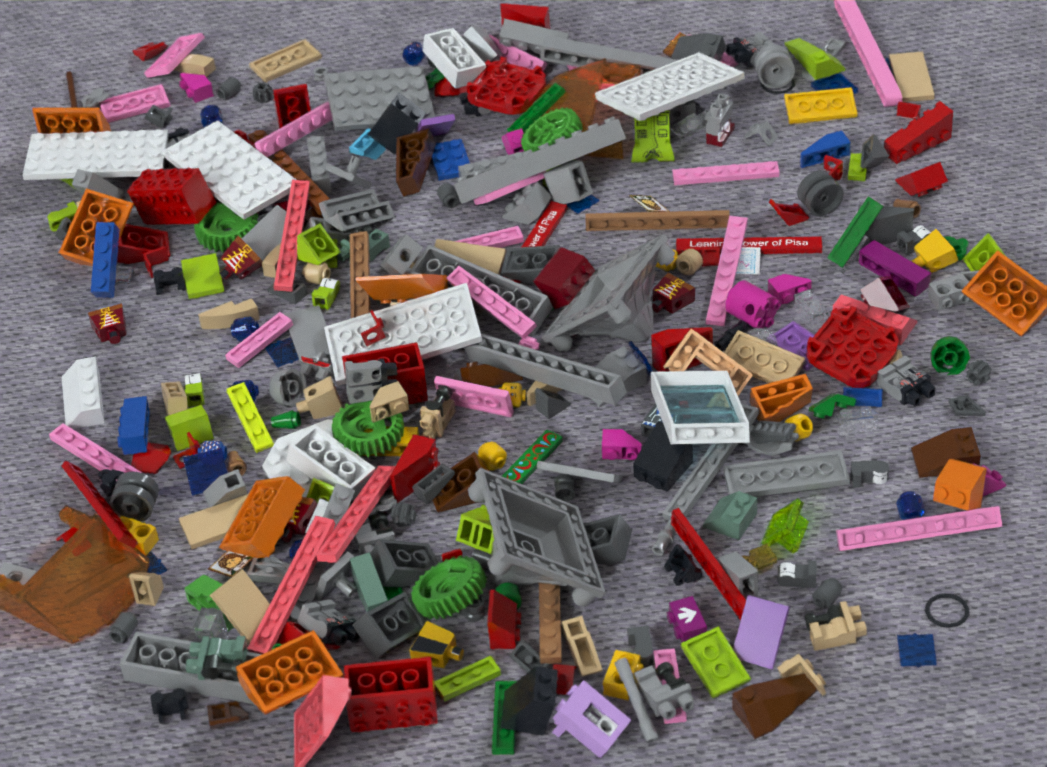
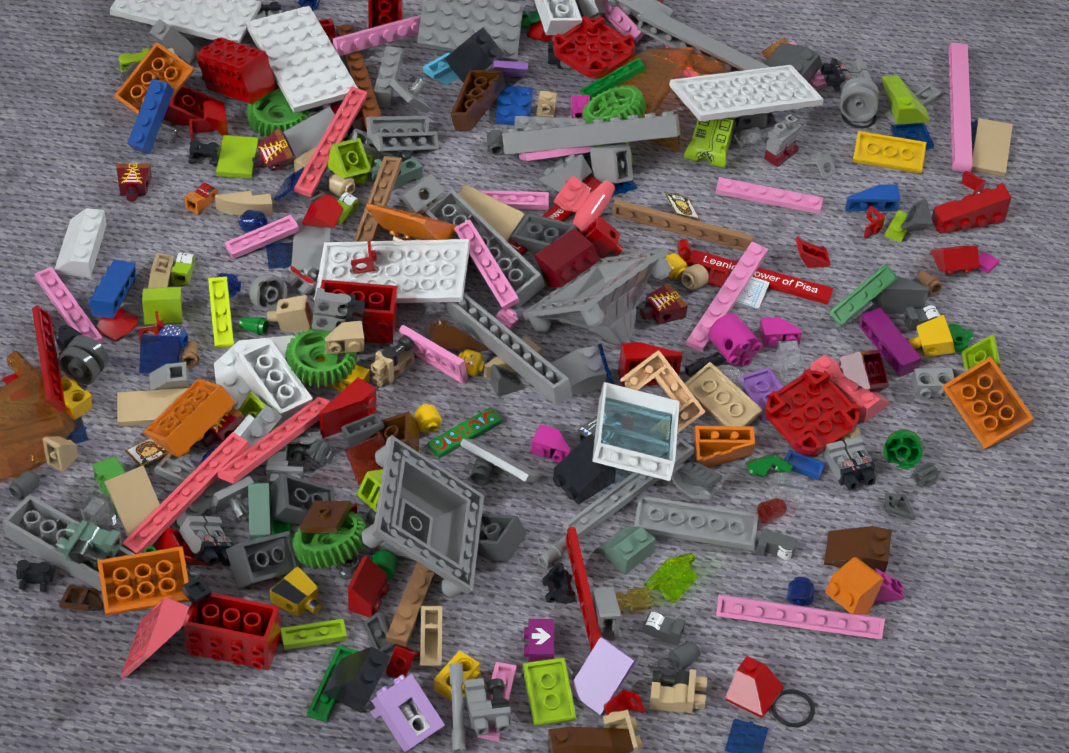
camera: 10 degrees right, 5 degrees up
(168, 242) = (215, 115): none -> red slope
(185, 319) = (201, 198): none -> orange leg
(265, 285) = (289, 184): none -> clear blue piece
(311, 301) = (323, 212): none -> red slope
(346, 664) = (196, 590): none -> black plate
(436, 567) = (325, 517): none -> reddish brown plate
(451, 504) = (363, 457): none -> clear red plate
(482, 148) = (547, 104): none -> tan brick
(560, 226) = (586, 204): none -> coral plate
(590, 247) = (603, 237): none -> red torso
(641, 640) = (489, 648): dark grey leg -> none
(671, 241) = (684, 250): none -> red bar
(789, 650) = (624, 701): none -> red bracket
(803, 425) = (730, 477): yellow head -> none
(820, 193) = (848, 244): dark grey wheel -> none
(851, 443) = (771, 509): none -> clear red brick
(904, 601) = (754, 687): none -> red slope
(953, 176) = (987, 262): none -> dark pink tile

